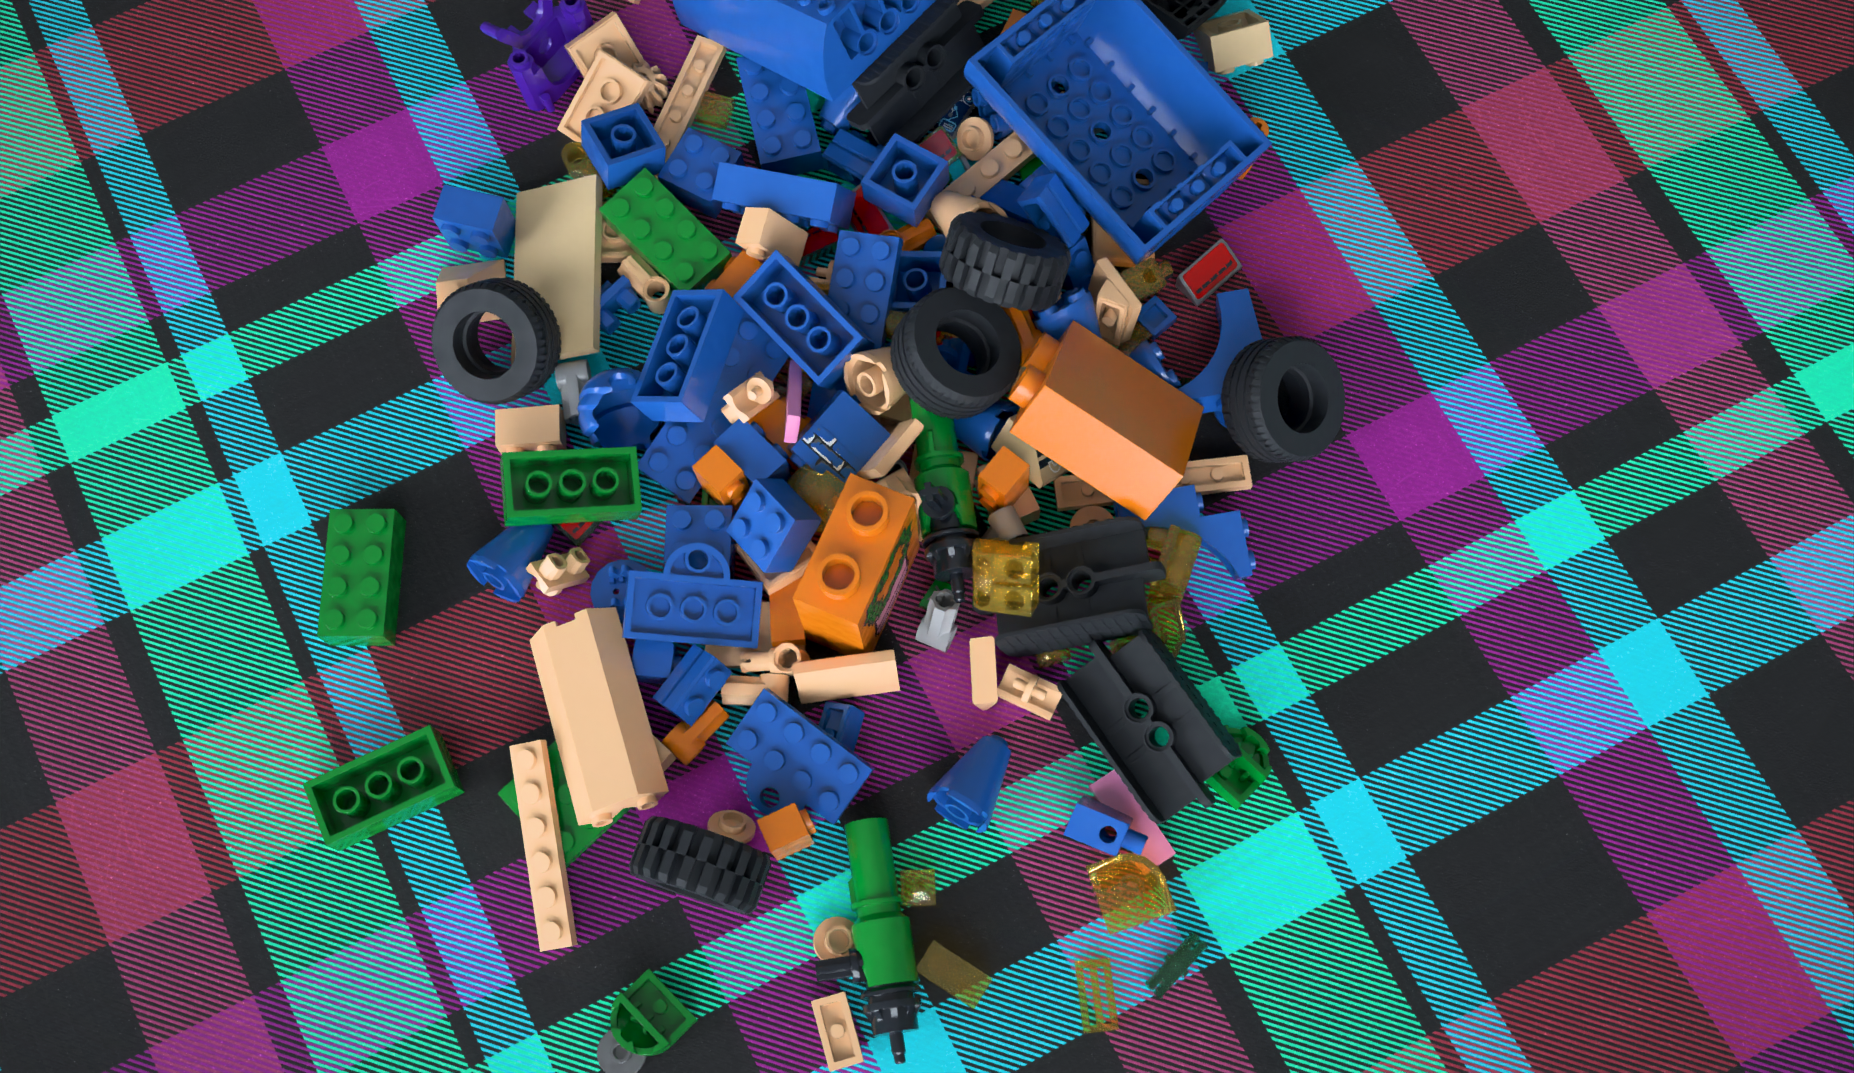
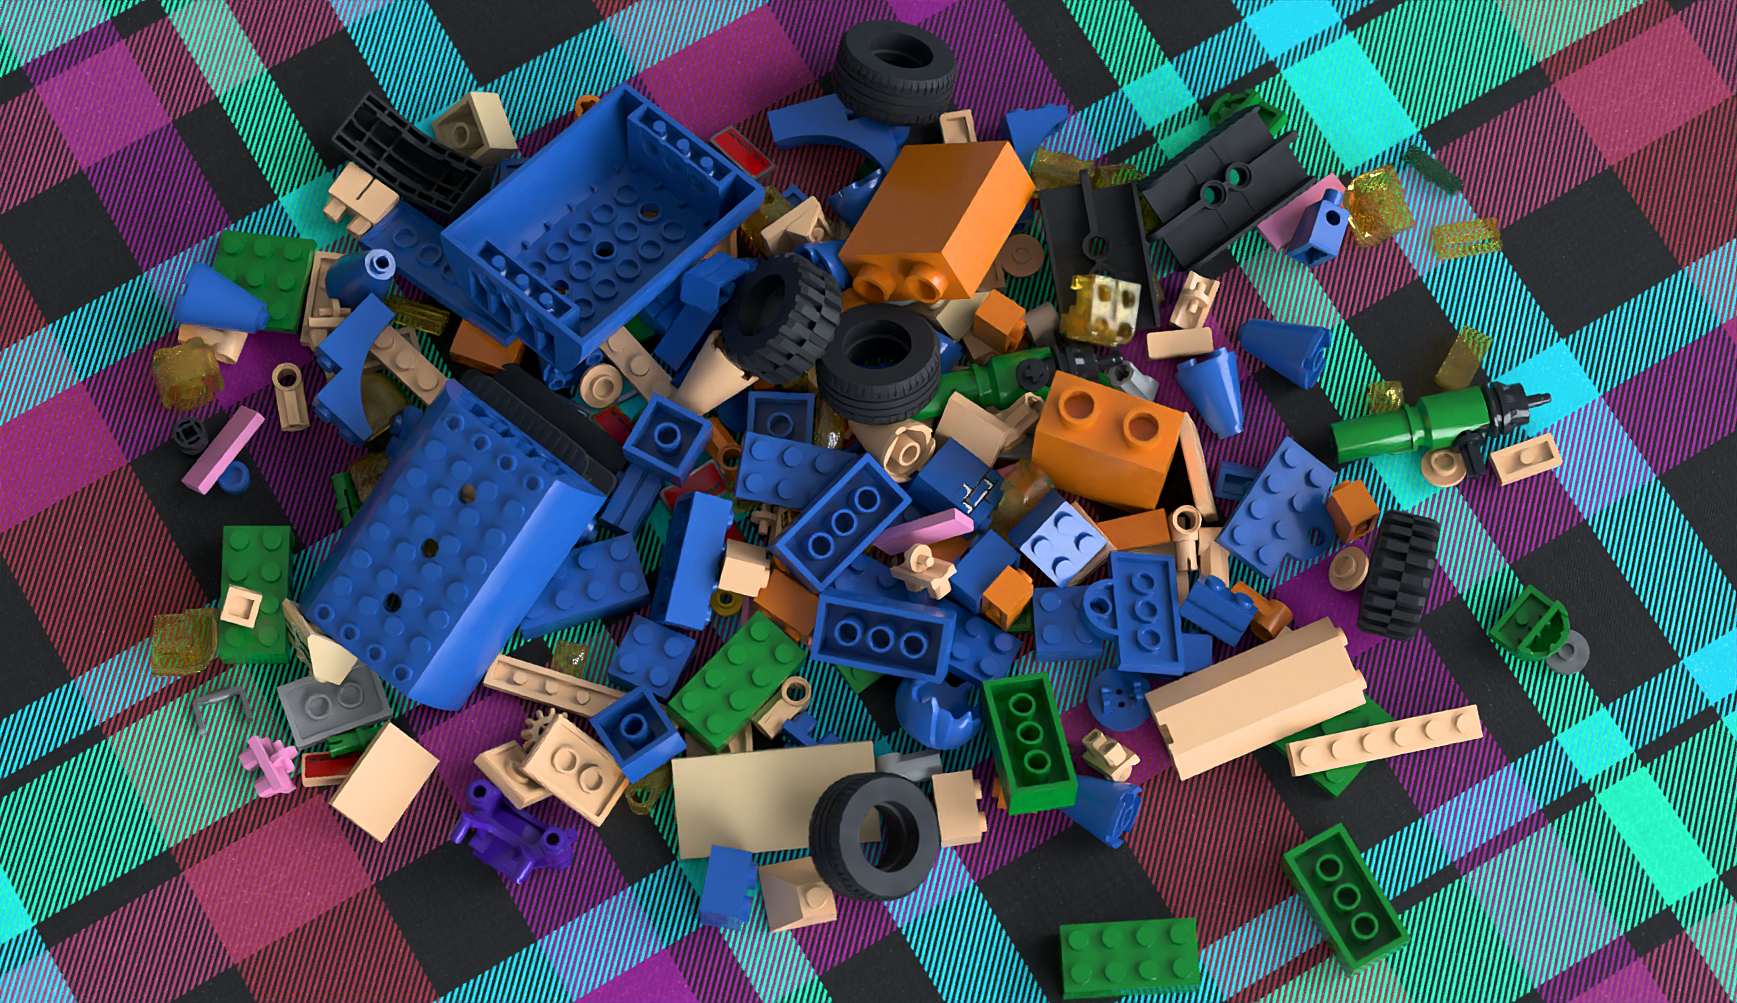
camera: 100 degrees left, 0 degrees up
(932, 703) = (1214, 391): none -> blue cone

